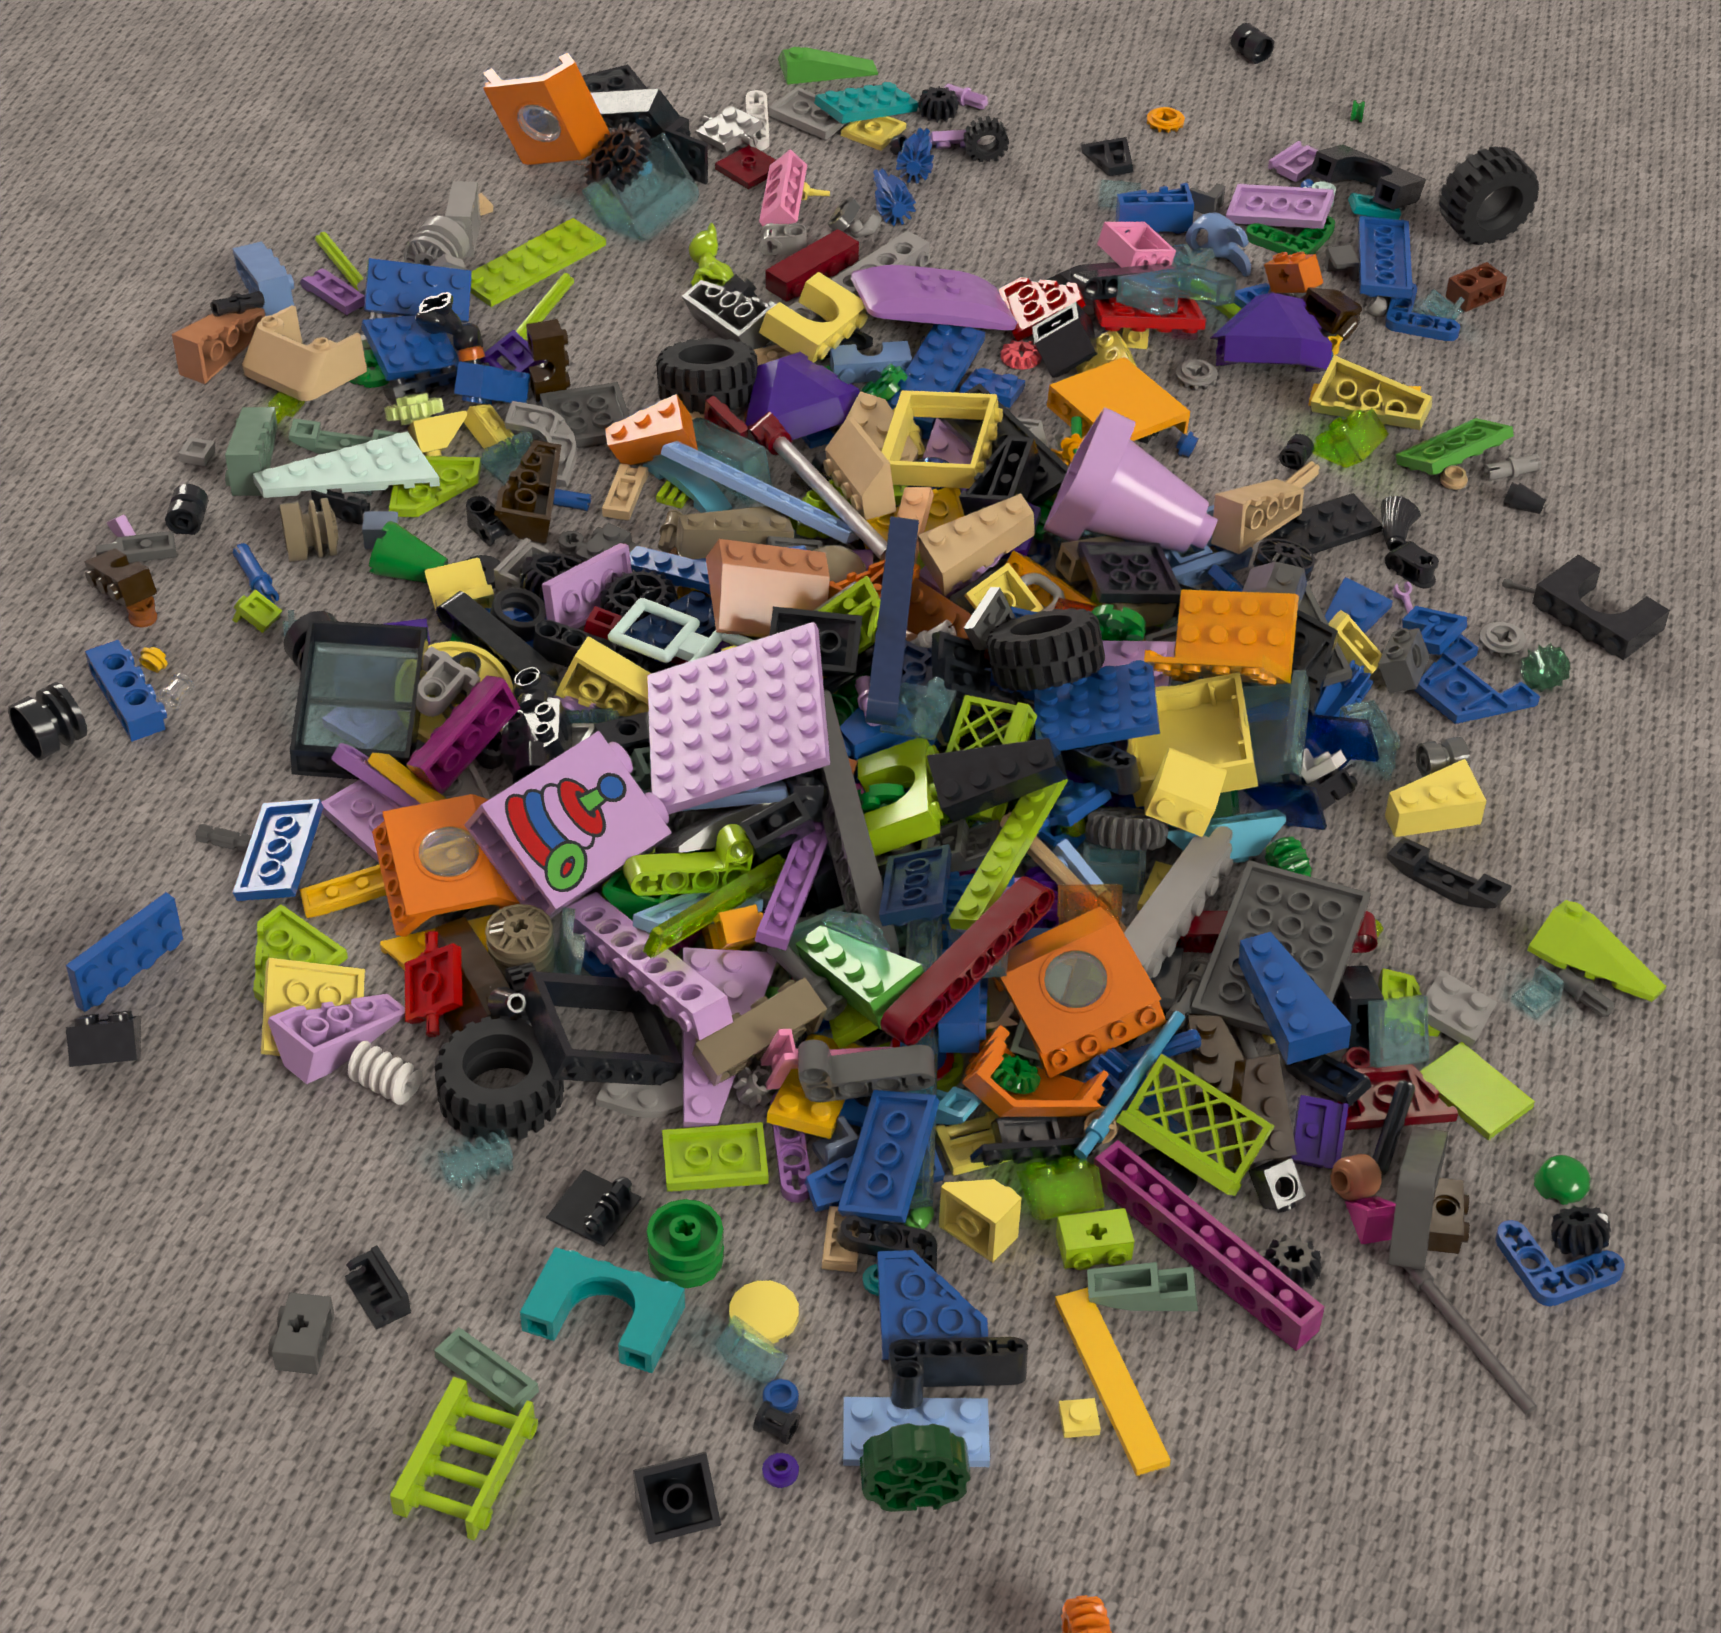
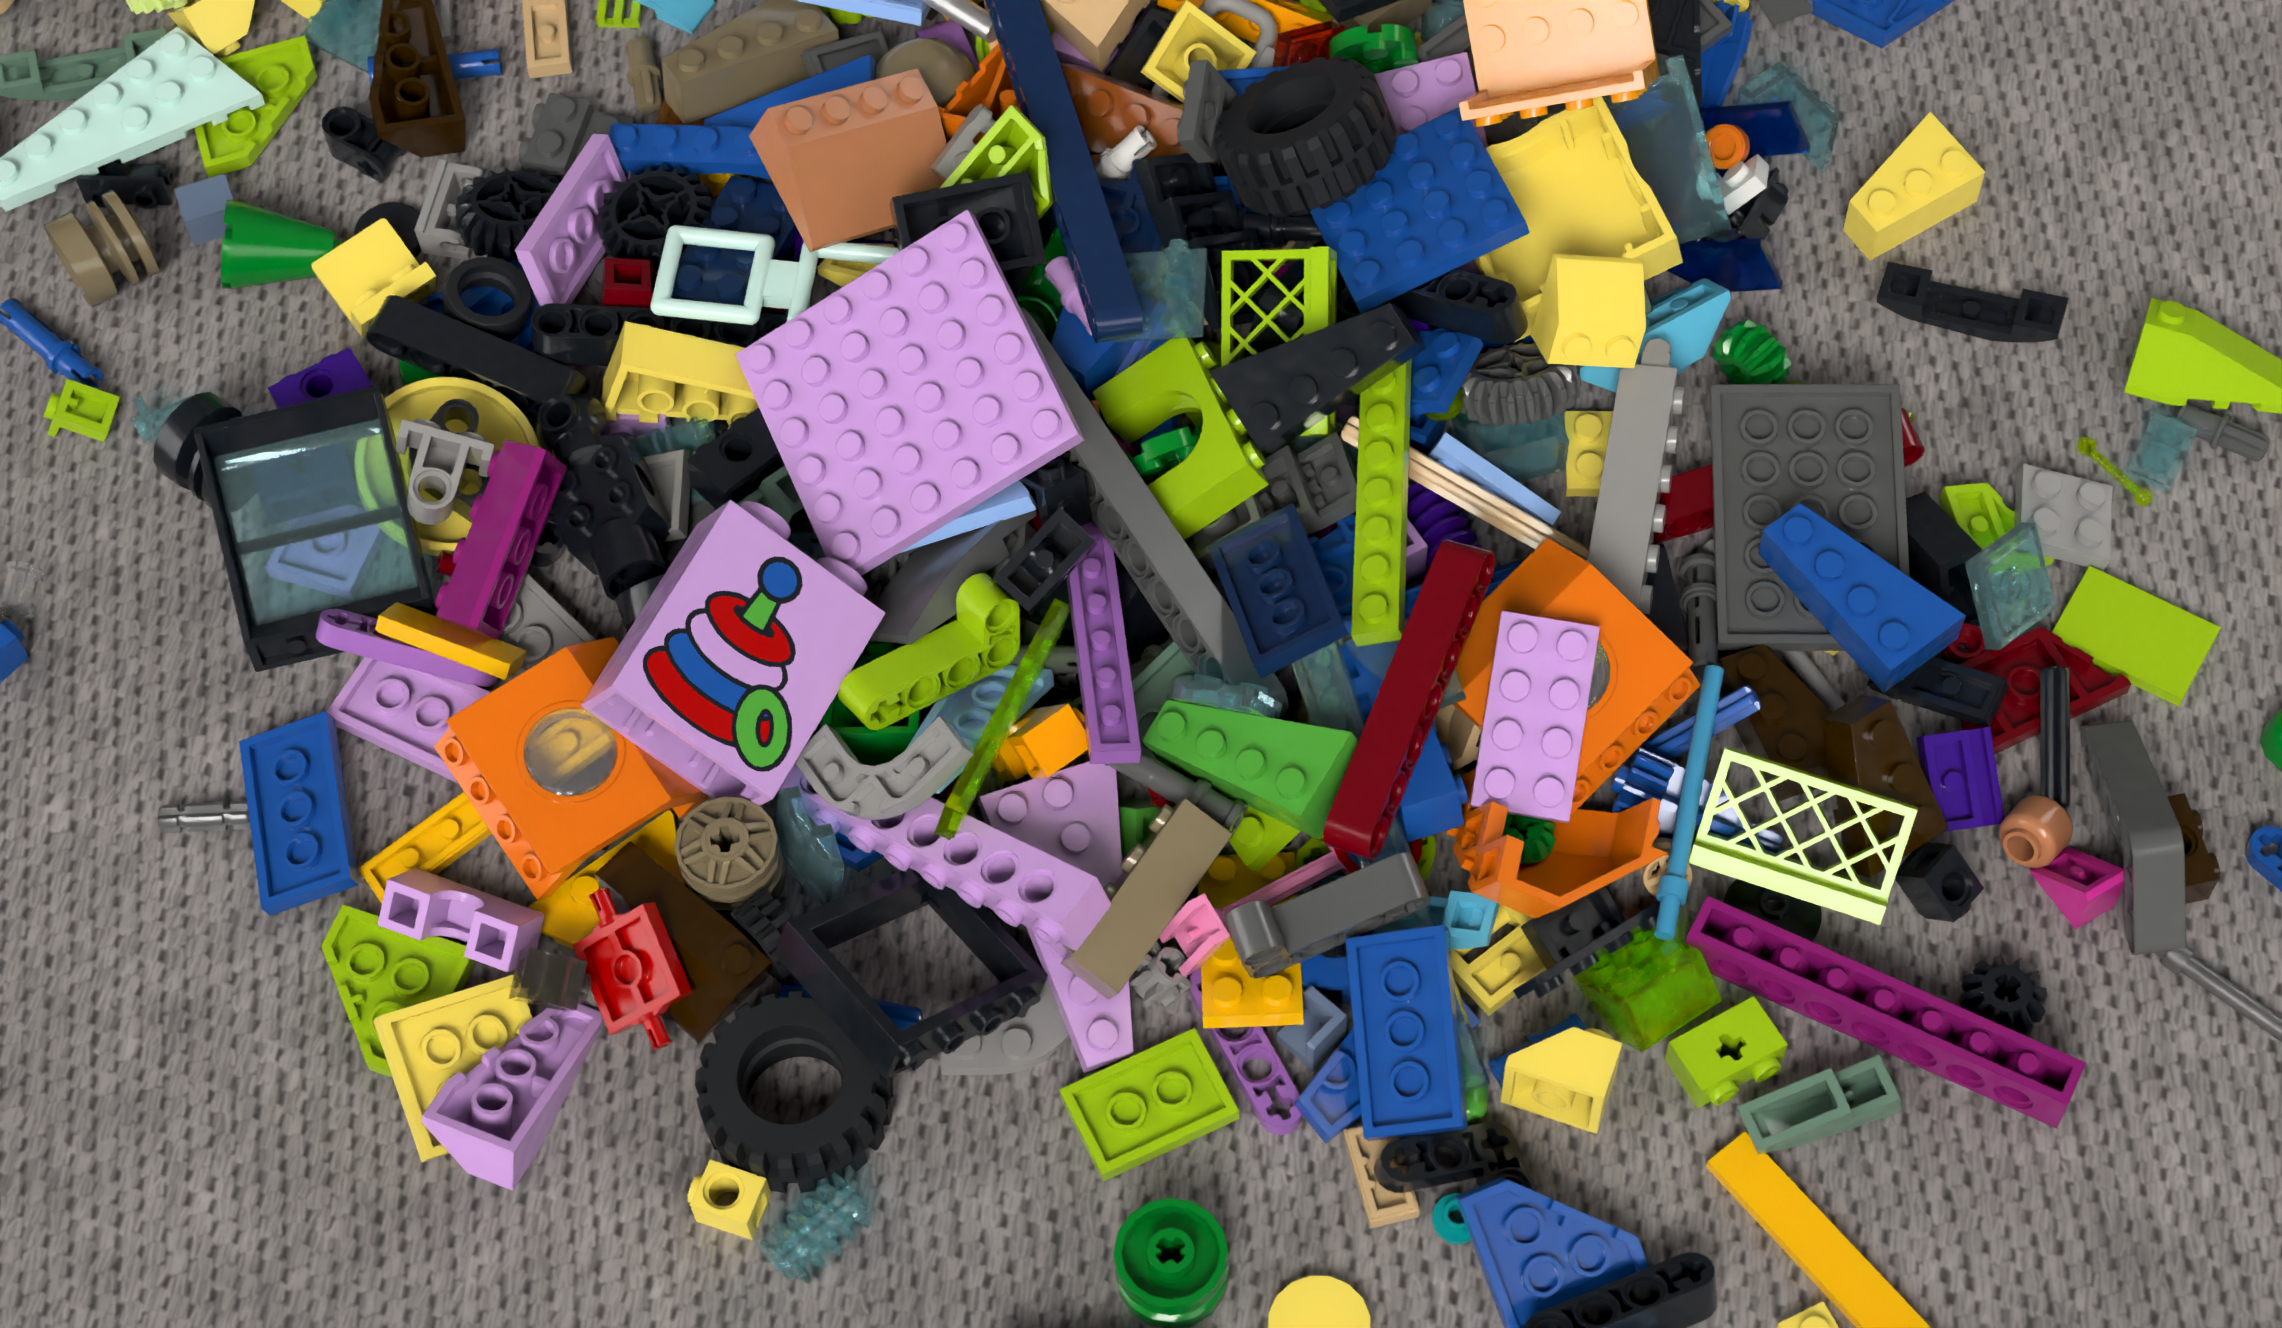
camera: 15 degrees left, 15 degrees up
(104, 1040) = (180, 1221): black slope -> none
(125, 952) = (150, 1071): blue plate -> none
(352, 932) = (431, 905): none -> lavender arch
(381, 974) = (550, 980): none -> clear smoke brick
(383, 1073) = (618, 1138): white piece -> none
(433, 1127) = (739, 1217): none -> light yellow brick
(505, 1002) = (761, 973): black cone -> none
(568, 537) = (498, 129): dark grey bush -> none
(595, 1207) = (1012, 1243): black hinge -> none
(635, 919) = (888, 787): none -> light grey plate
(1046, 998) = (1535, 716): none -> lavender plate
(1080, 899) = (1519, 527): clear orange plate -> none
(1322, 740) = (1728, 145): none -> orange tile
(1434, 756) = (1889, 119): dark grey wheel -> none
(1515, 1015) = (2087, 446): none -> clear neon green hinge

